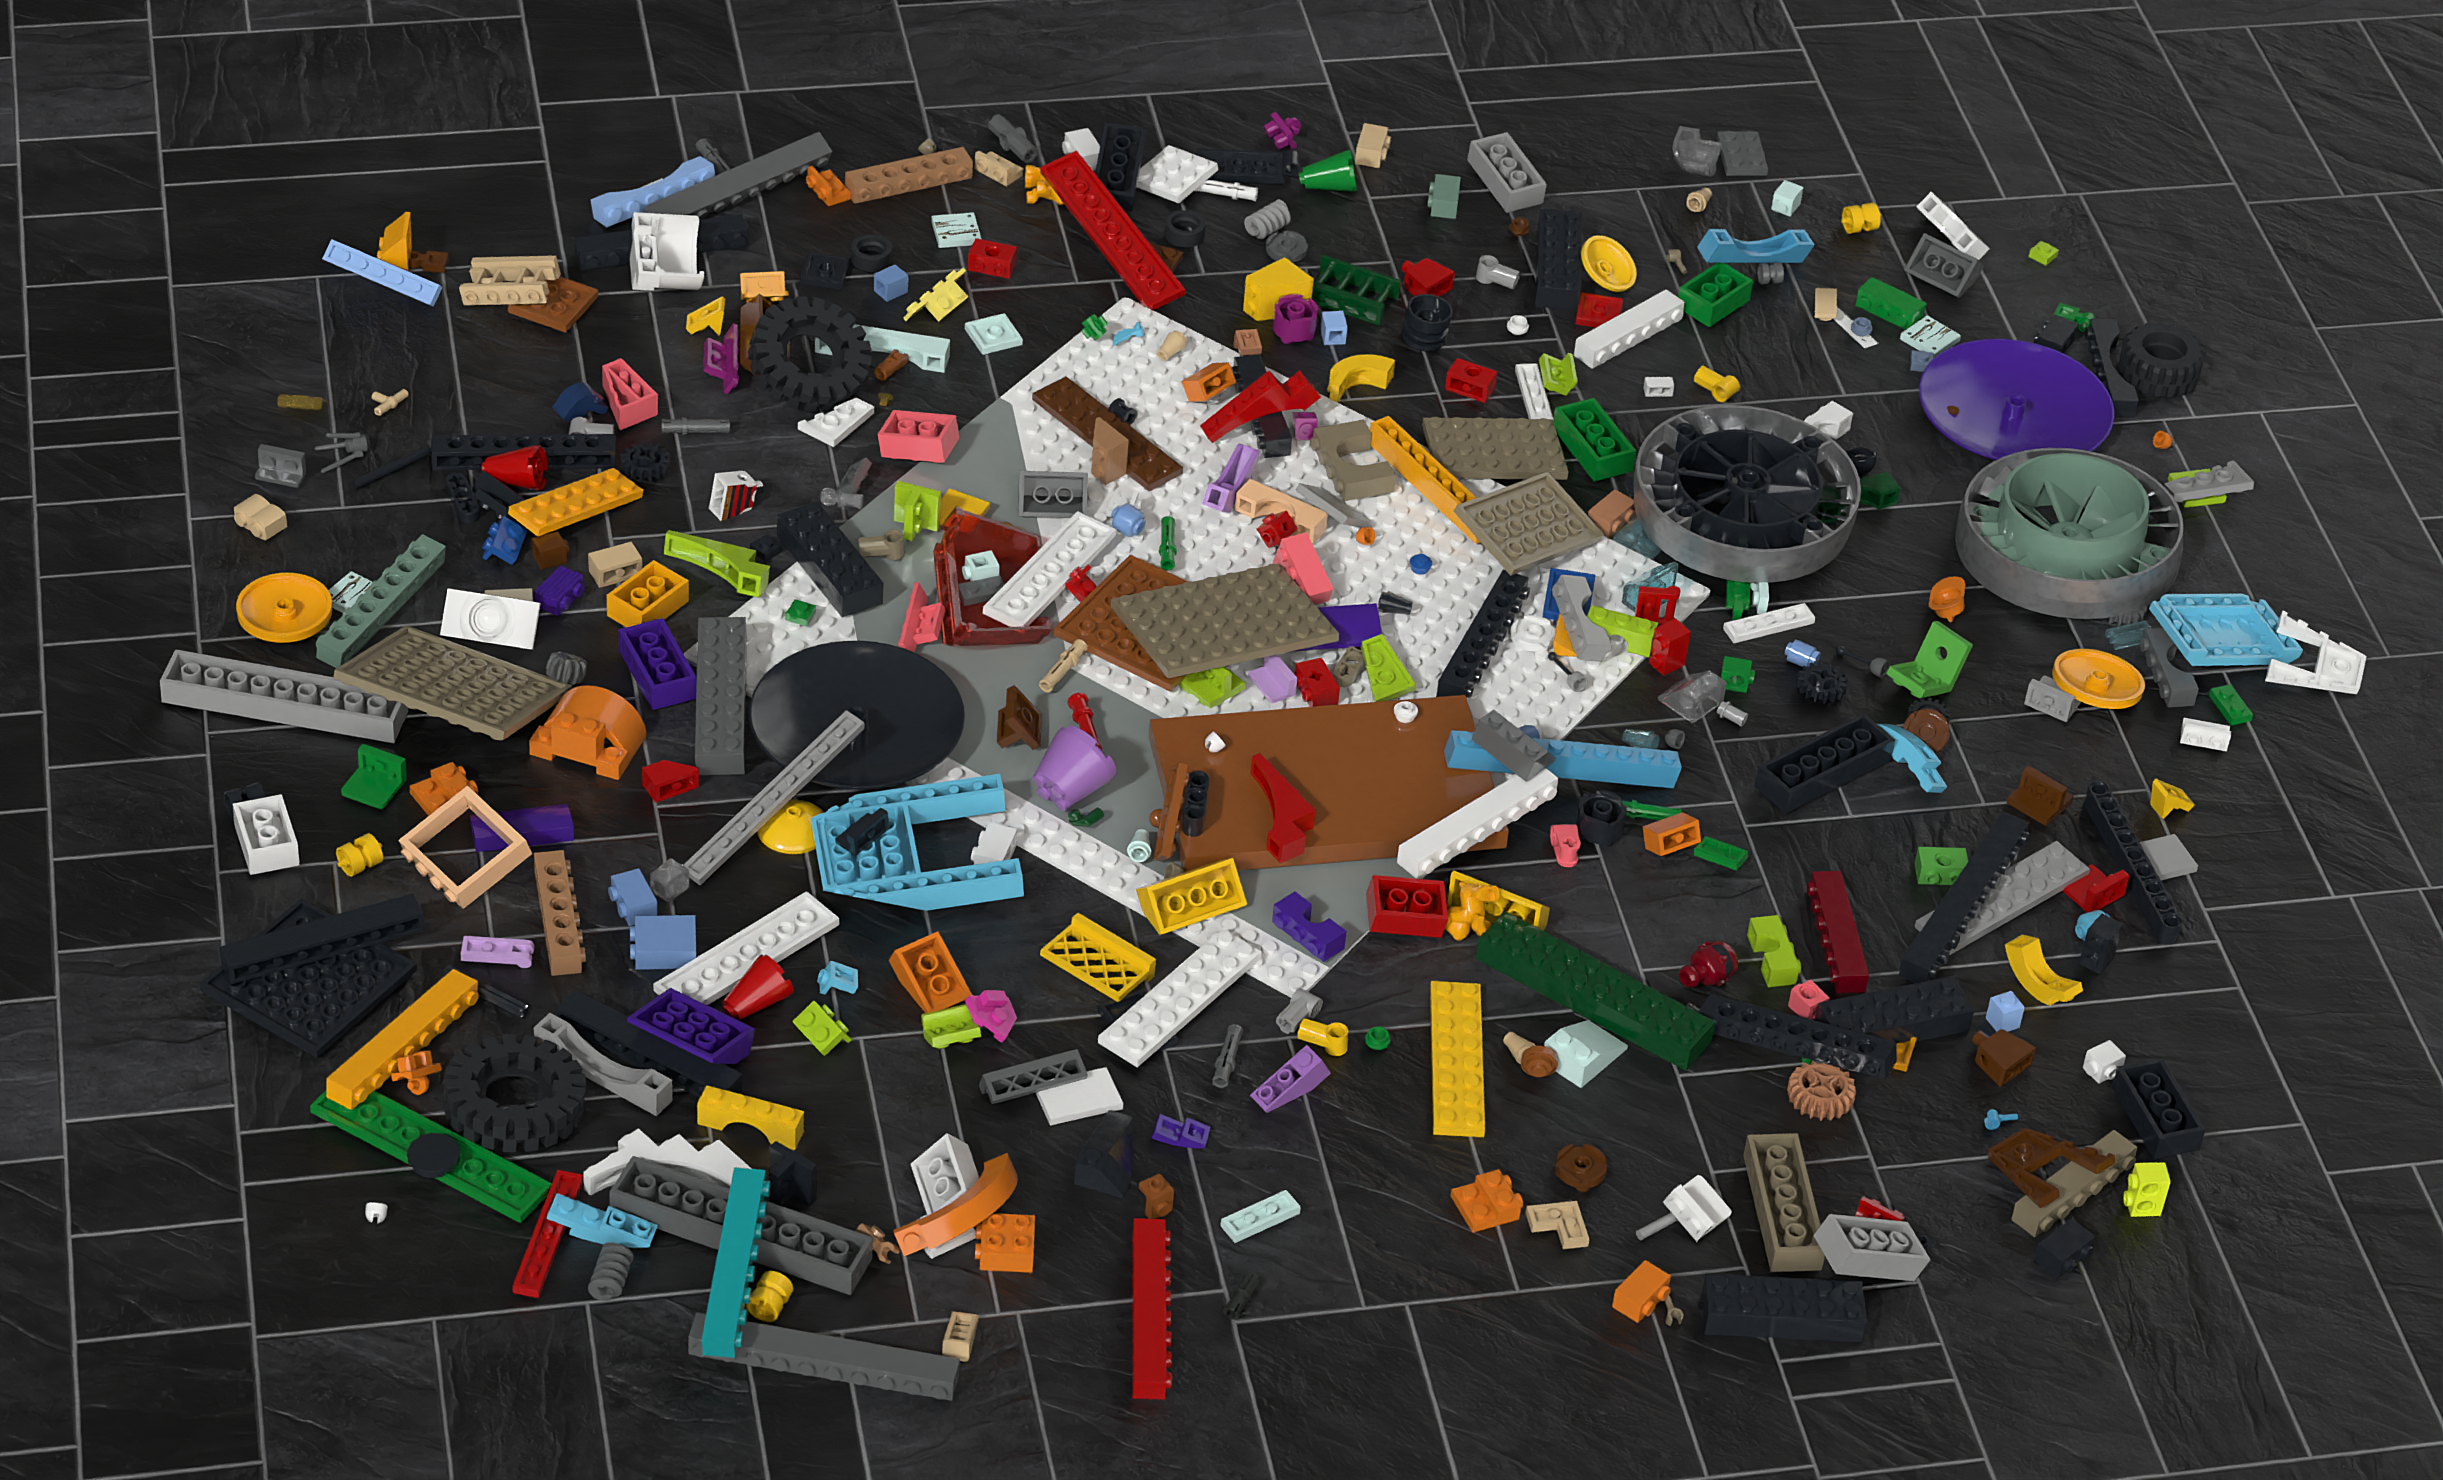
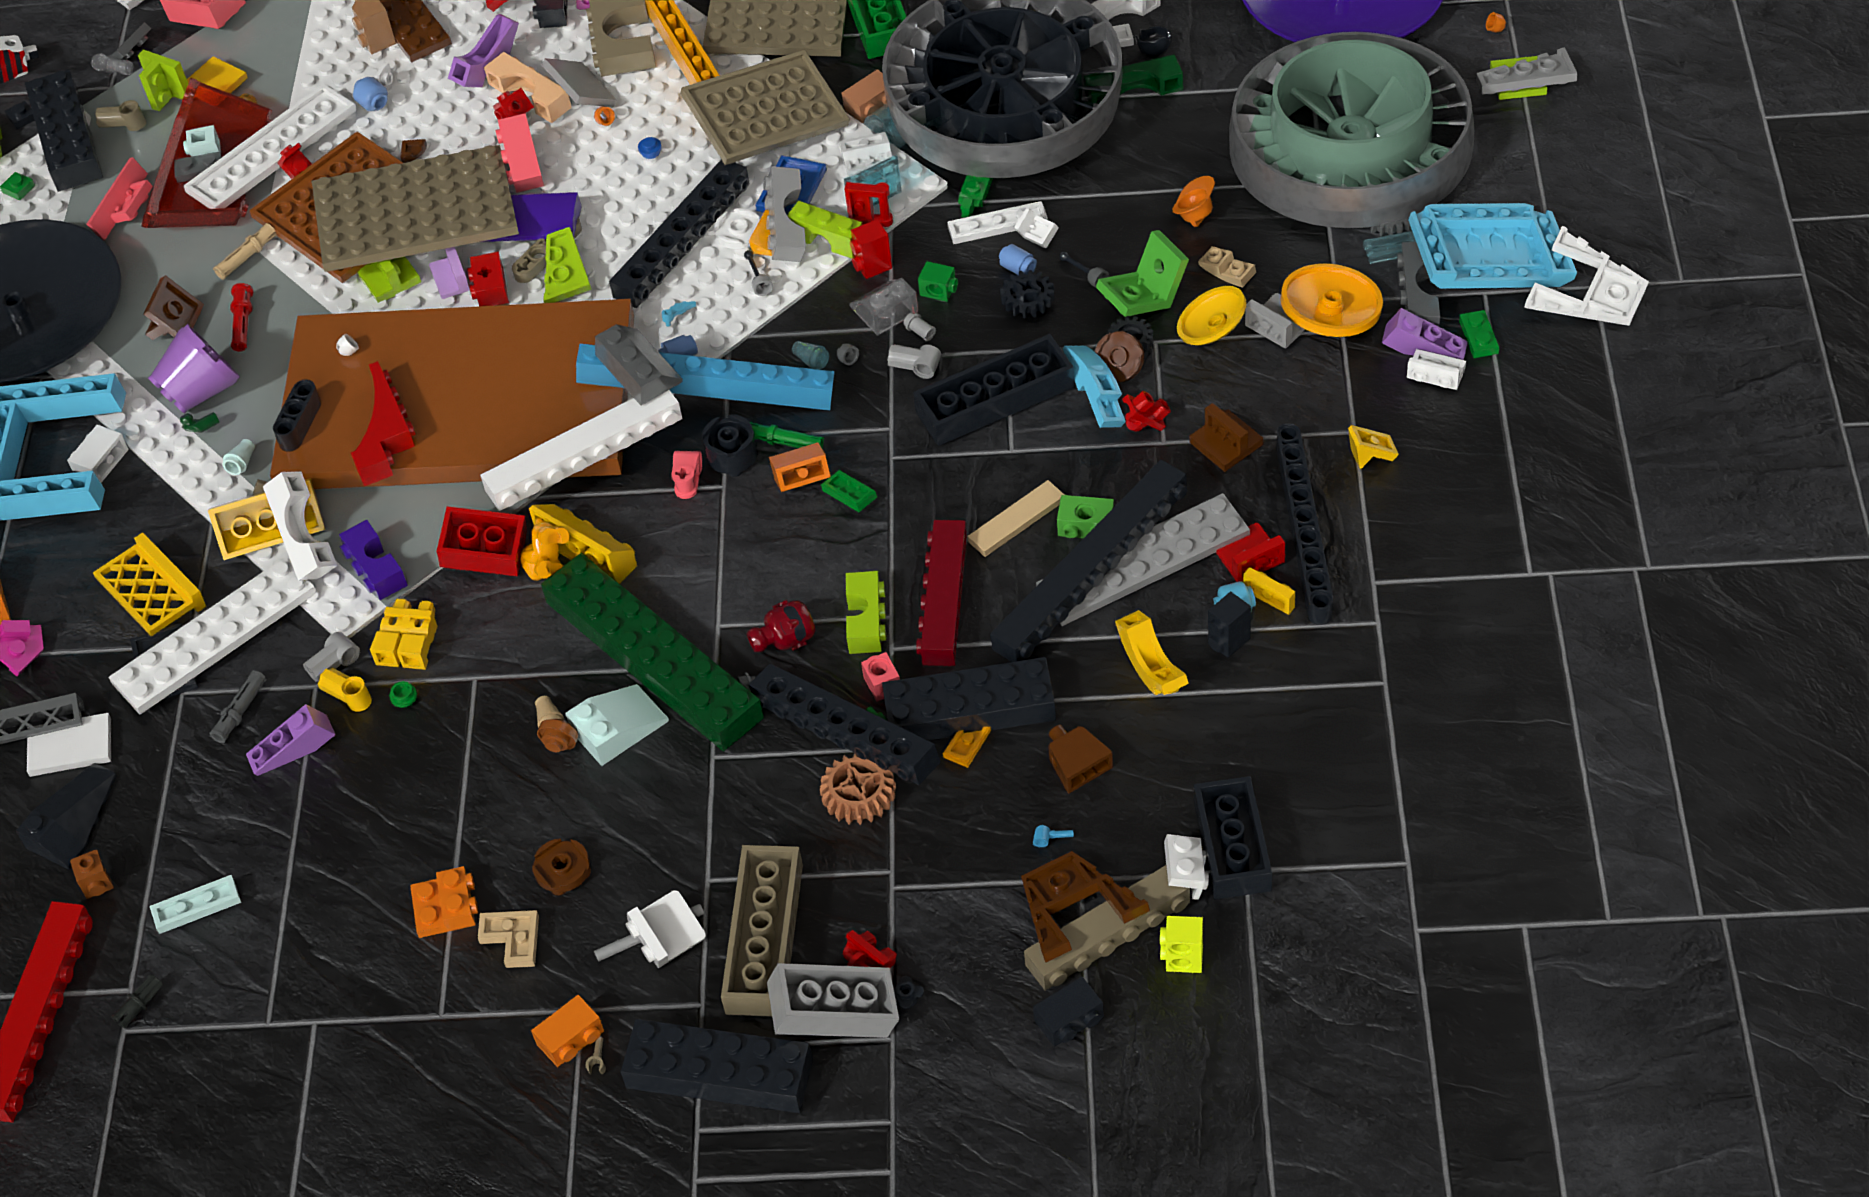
camera: 20 degrees right, 10 degrees up
(1052, 494) = (308, 64): dark grey slope -> none
(1167, 558) = (399, 125): green pin -> none
(1167, 818) = (266, 436): dark orange plate -> none
(1187, 570) = (412, 149): none -> reddish brown tile
(1187, 1134) = (156, 796): dark purple slope -> none
(1224, 871) = (287, 499): none -> white arch
(1362, 988) = (405, 635): none -> yellow hips
(1393, 603) = (603, 192): black cone -> none
(1405, 711) = (557, 316): white plate -> none
(1457, 1059) = (478, 724): yellow plate -> none
(1505, 704) = (679, 308): none -> medium azure piece
(1627, 564) = (864, 151): none -> white slope
(1746, 741) = (921, 361): none -> light grey piece
(1760, 596) = (996, 193): light aqua plate -> none
(1810, 626) = (1035, 228): none -> white bracket
(1878, 869) = (1015, 518): none -> tan tile
(1967, 776) = (1145, 412): none -> red hips
(1986, 653) = (1224, 266): none -> tan slope
(1998, 694) = (1211, 315): none -> yellow dish
(2005, 1012) = (1096, 703): light blue brick -> none
(2103, 1061) = (1190, 770): white brick -> none
(2128, 1129) = (1186, 863): none -> white bracket
(2132, 920) = (1270, 591): none -> yellow plate
(2169, 857) = (1346, 517): light grey tile -> none
(2174, 704) = (1409, 332): none -> medium lavender slope

